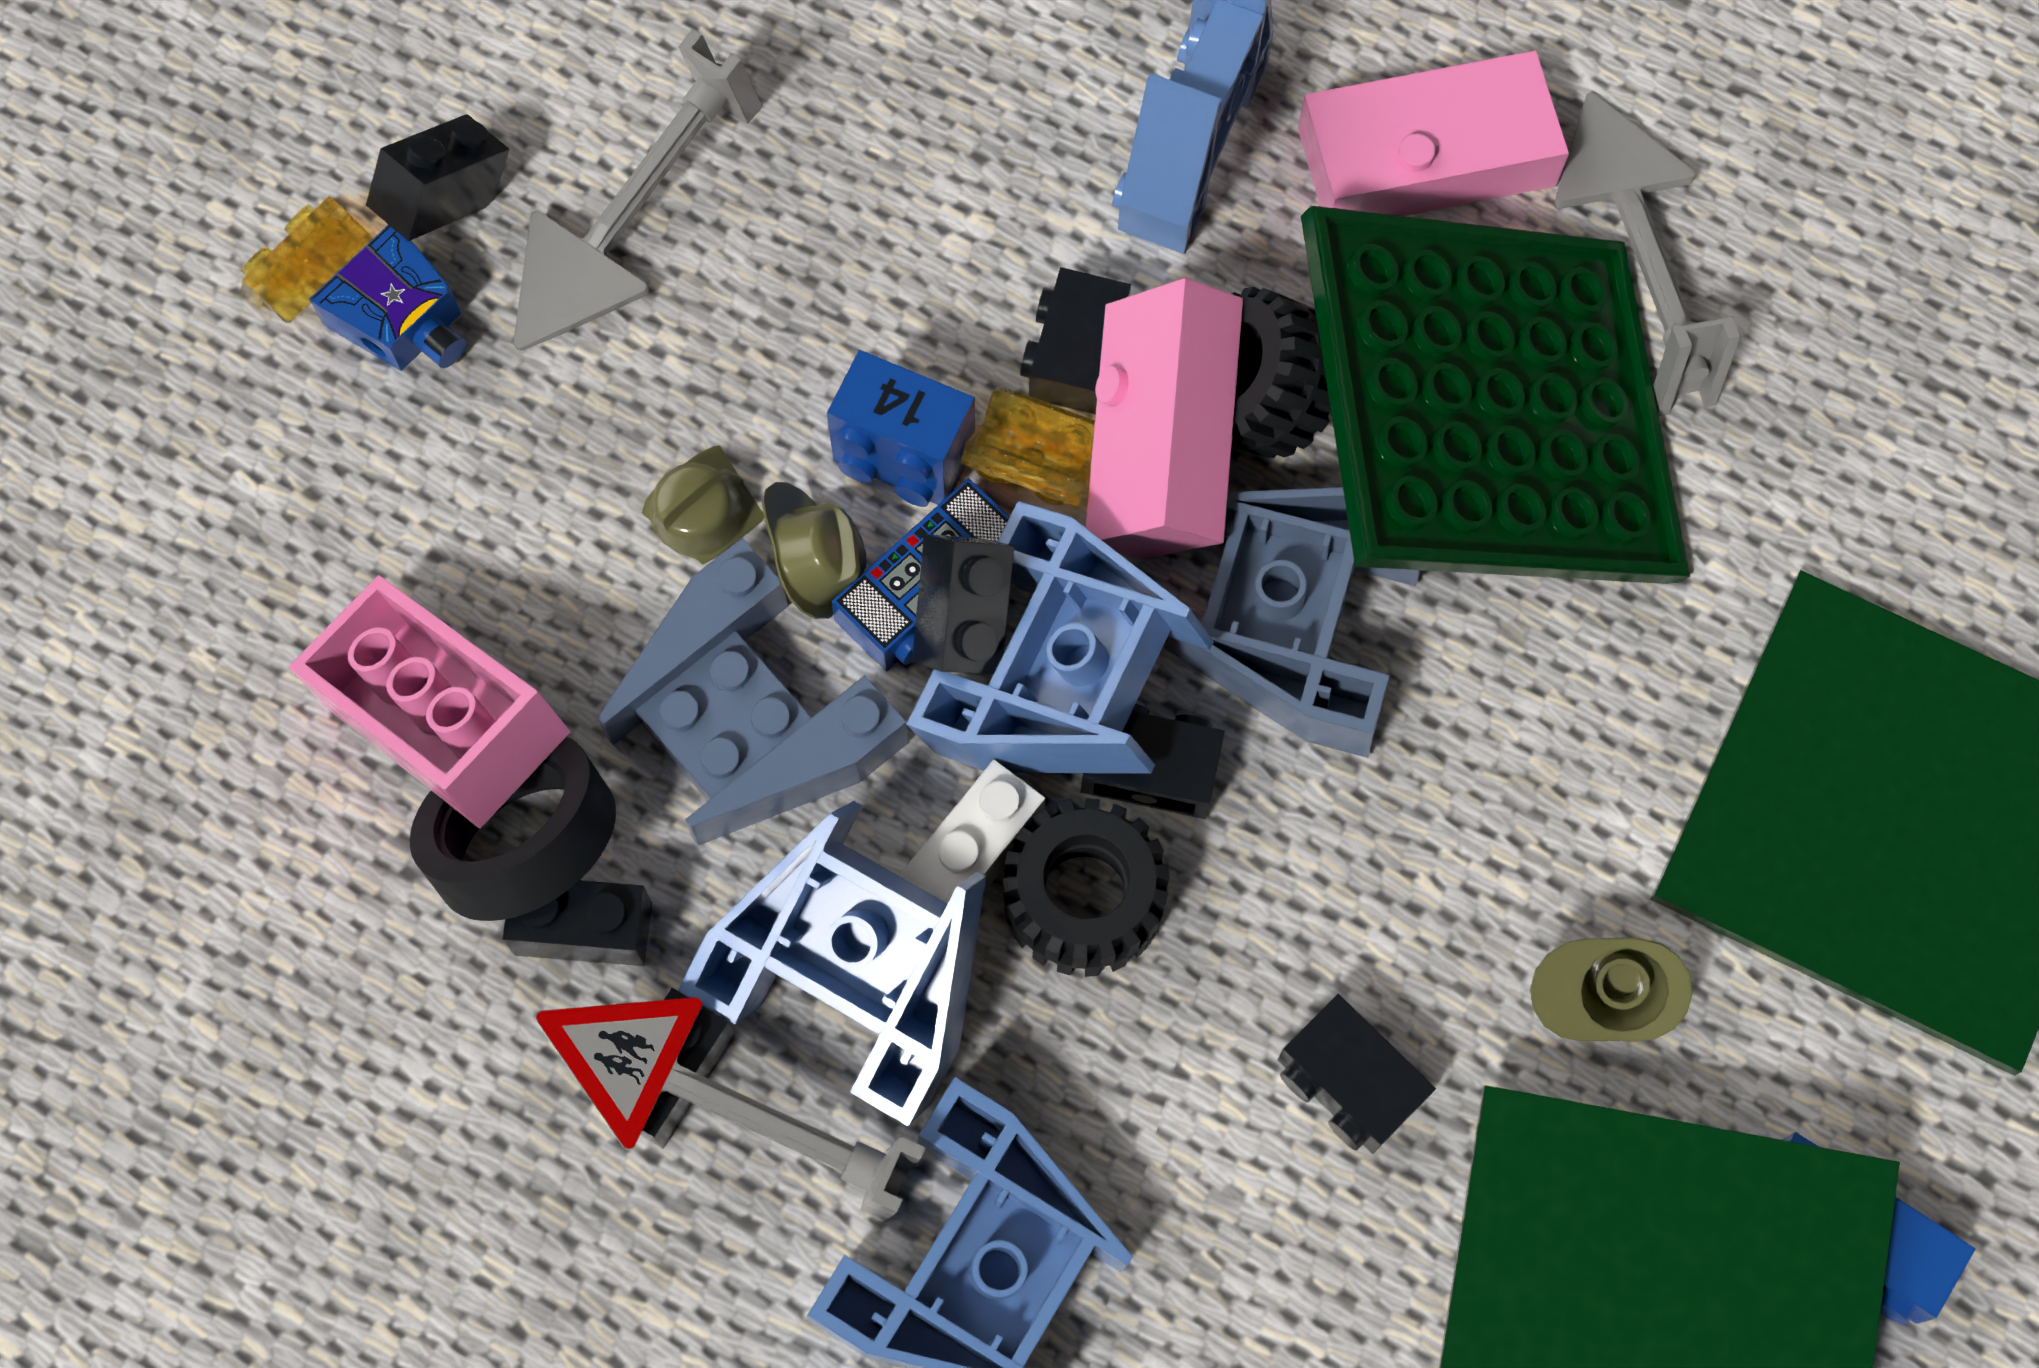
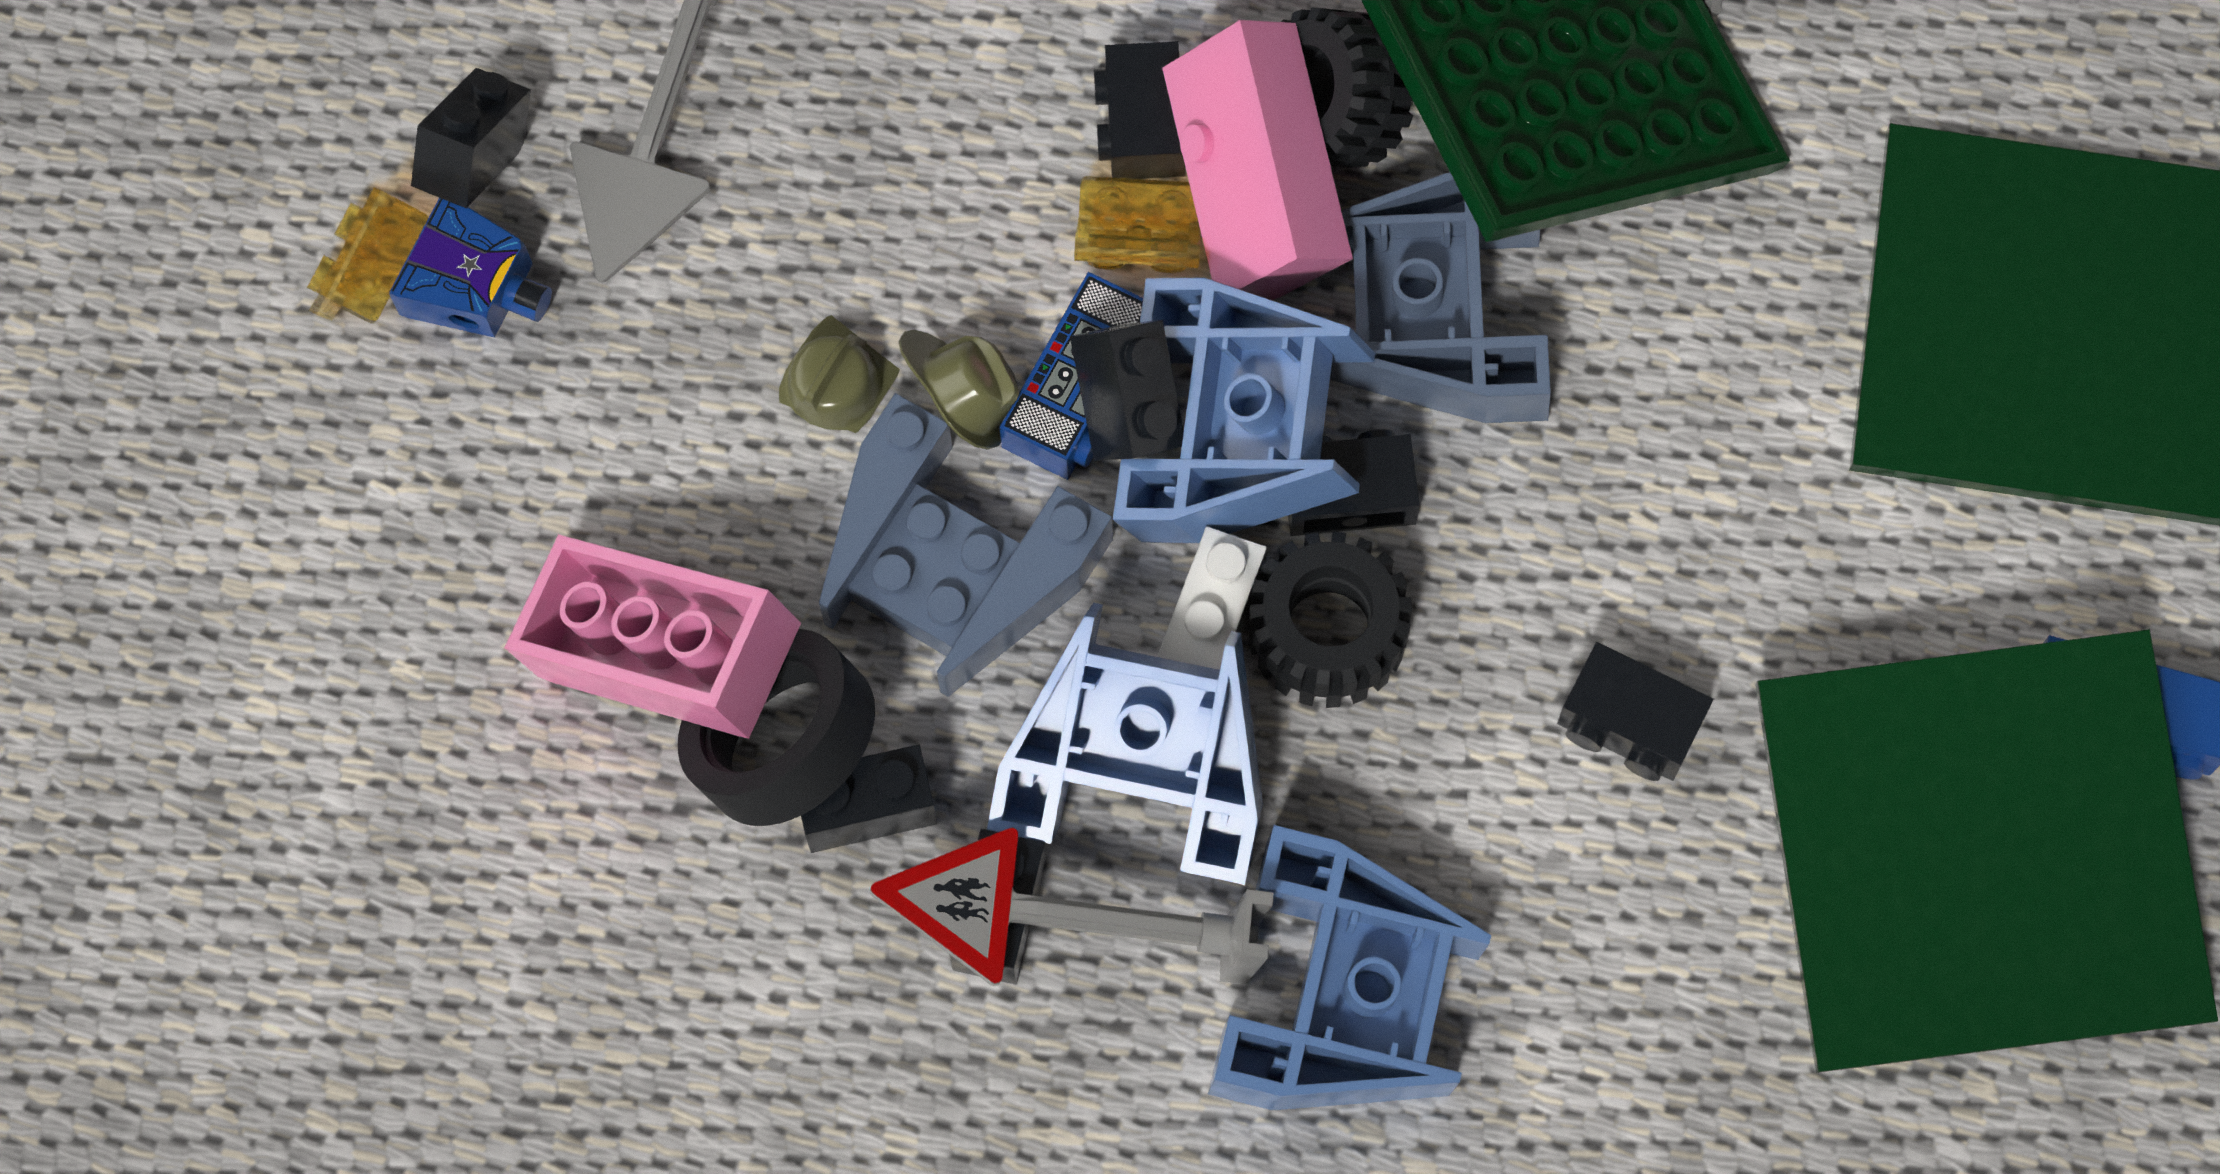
camera: 15 degrees left, 0 degrees up
(900, 429) = (1008, 246): blue brick -> none
(1611, 990) = (1842, 560): olive piece -> none

